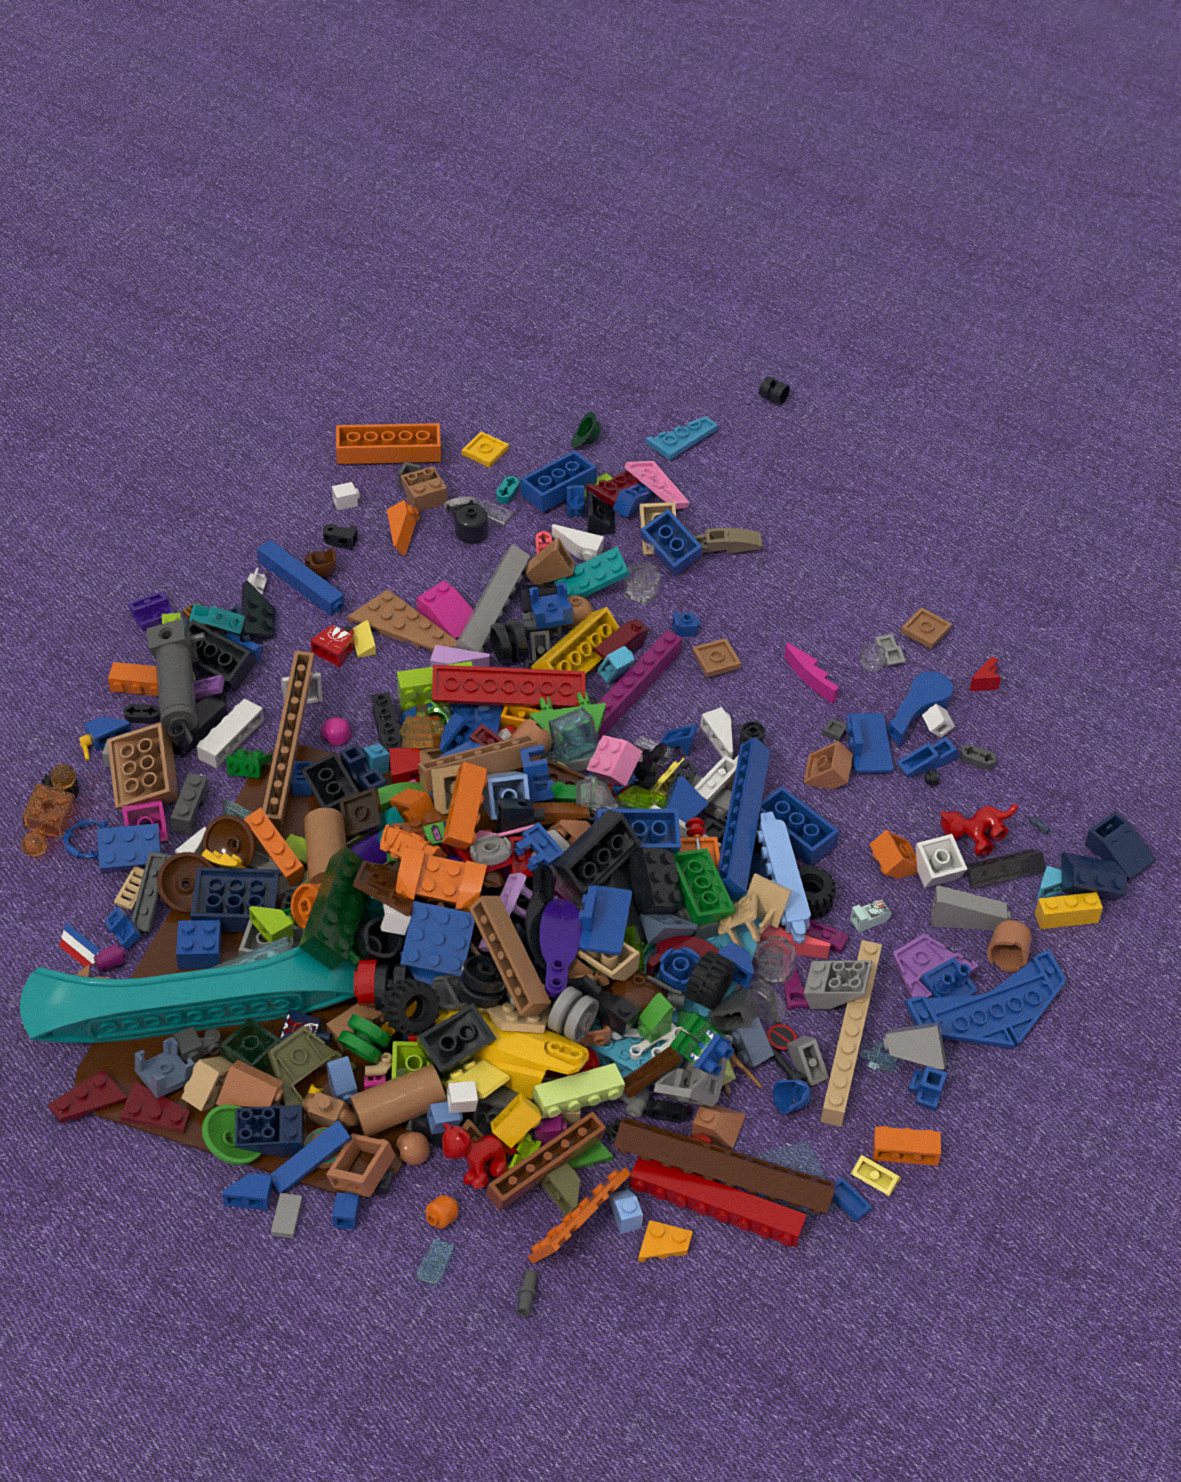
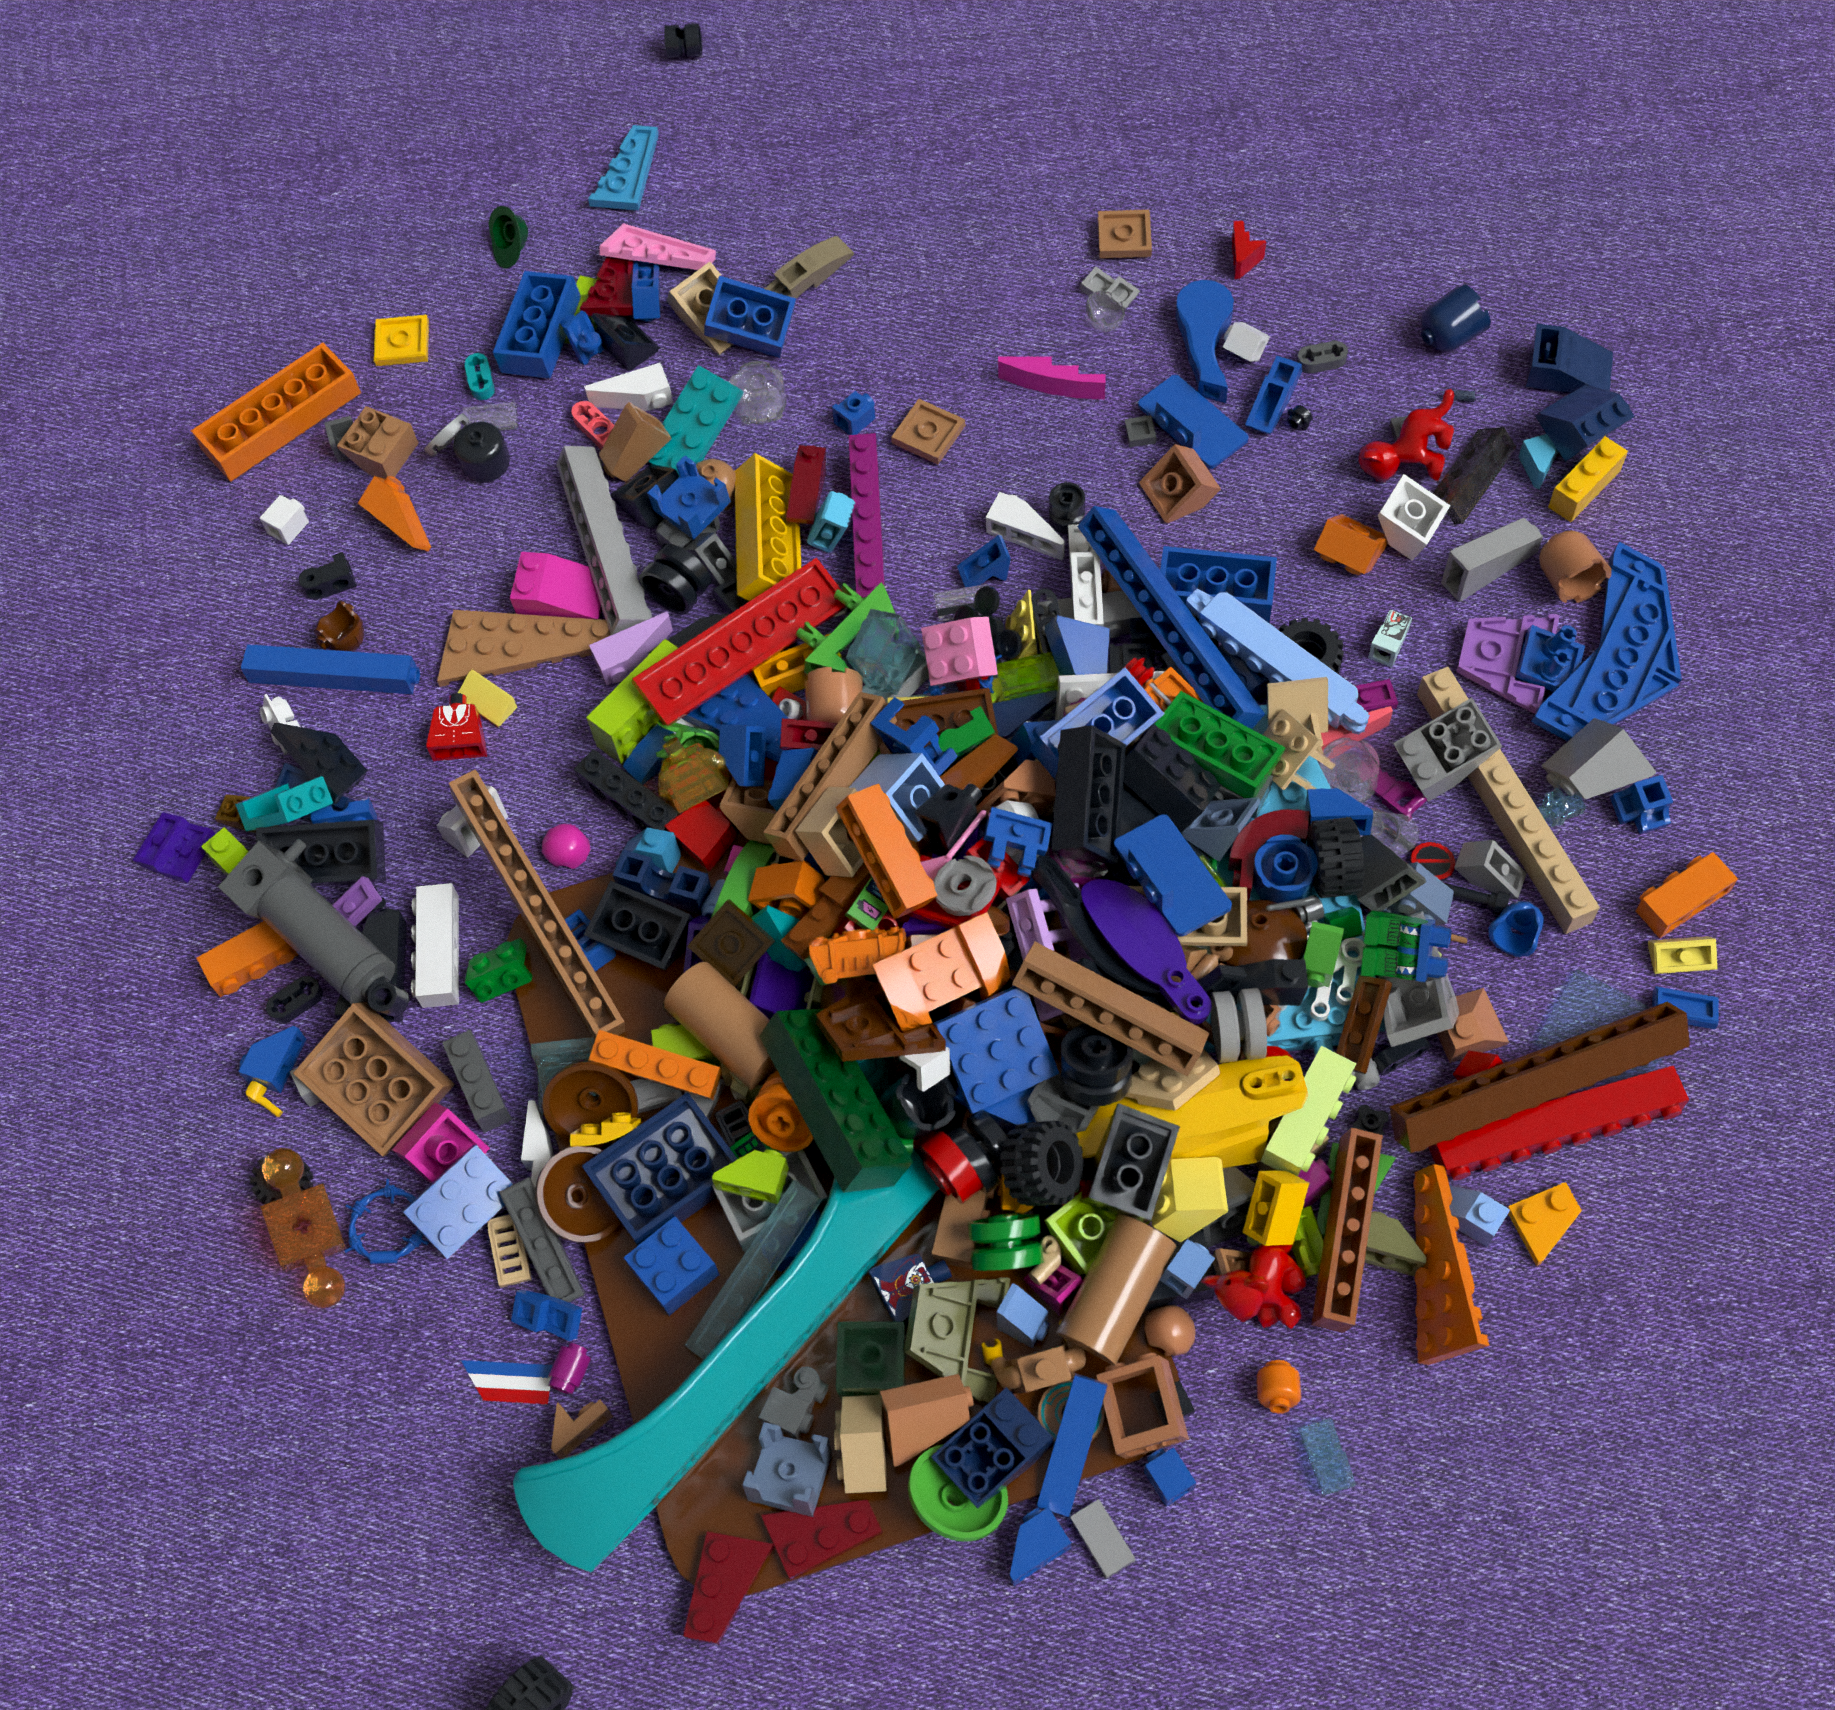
camera: 30 degrees left, 15 degrees up
(462, 1097) = (1199, 1231): white panel -> none
(527, 1293) = (1464, 1410): dark grey pin -> none
(594, 794) = (1005, 717): clear slope -> none
(1068, 782) = (1454, 319): none -> dark blue cylinder

